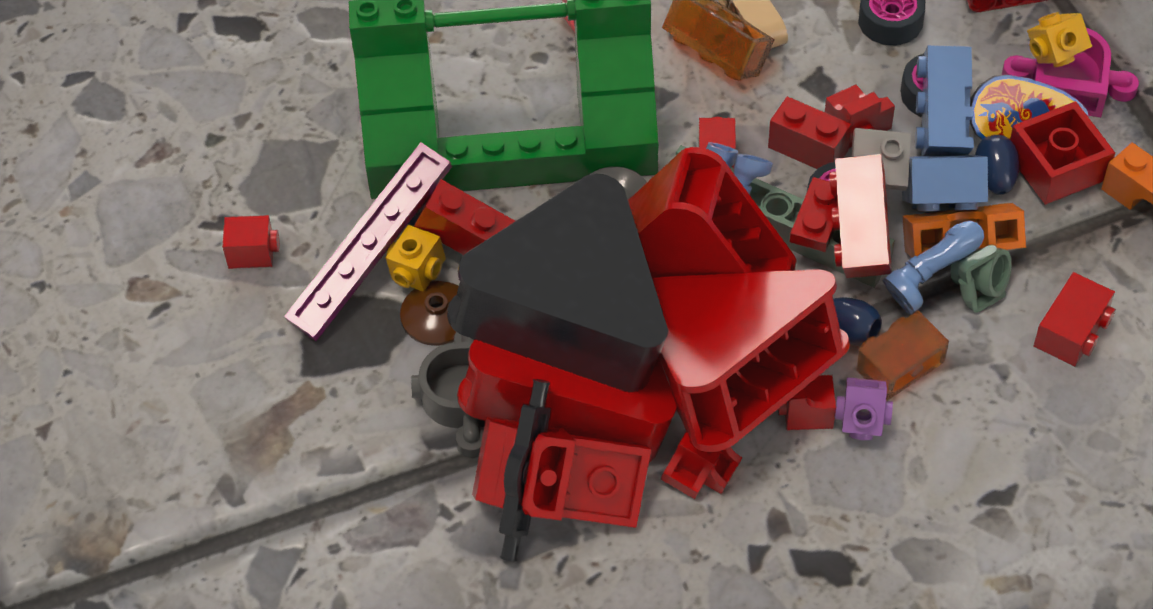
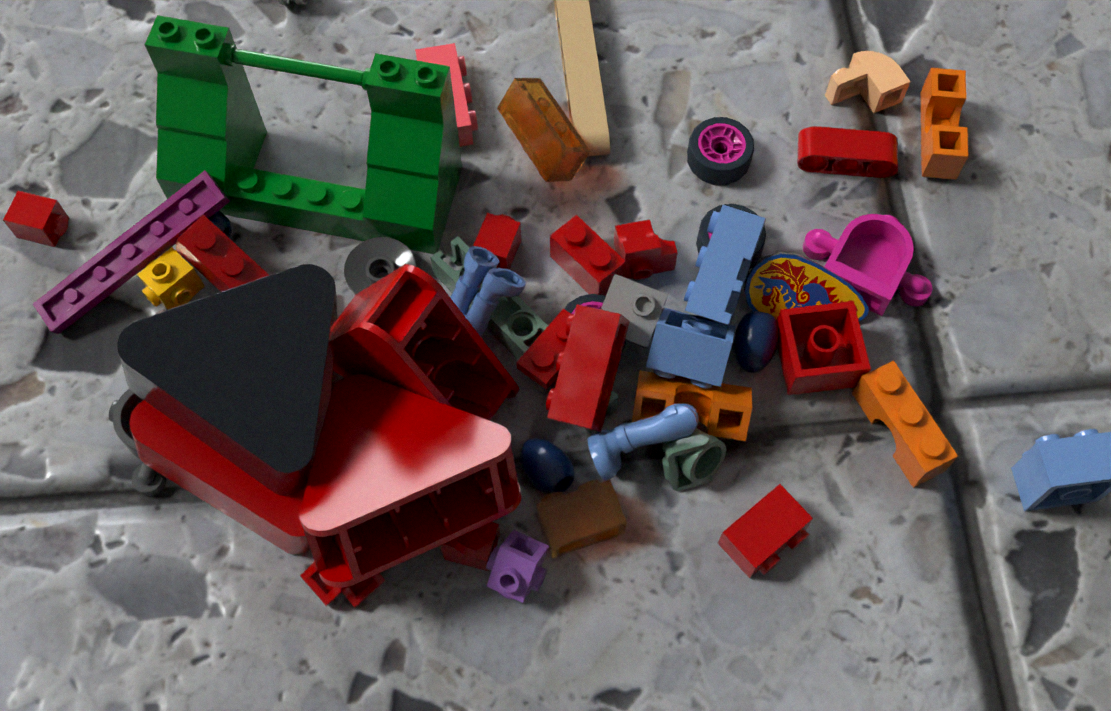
camera: 15 degrees right, 10 degrees up
(554, 474) = (177, 548): red piece -> none
(1058, 38) = (861, 230): yellow brick -> none

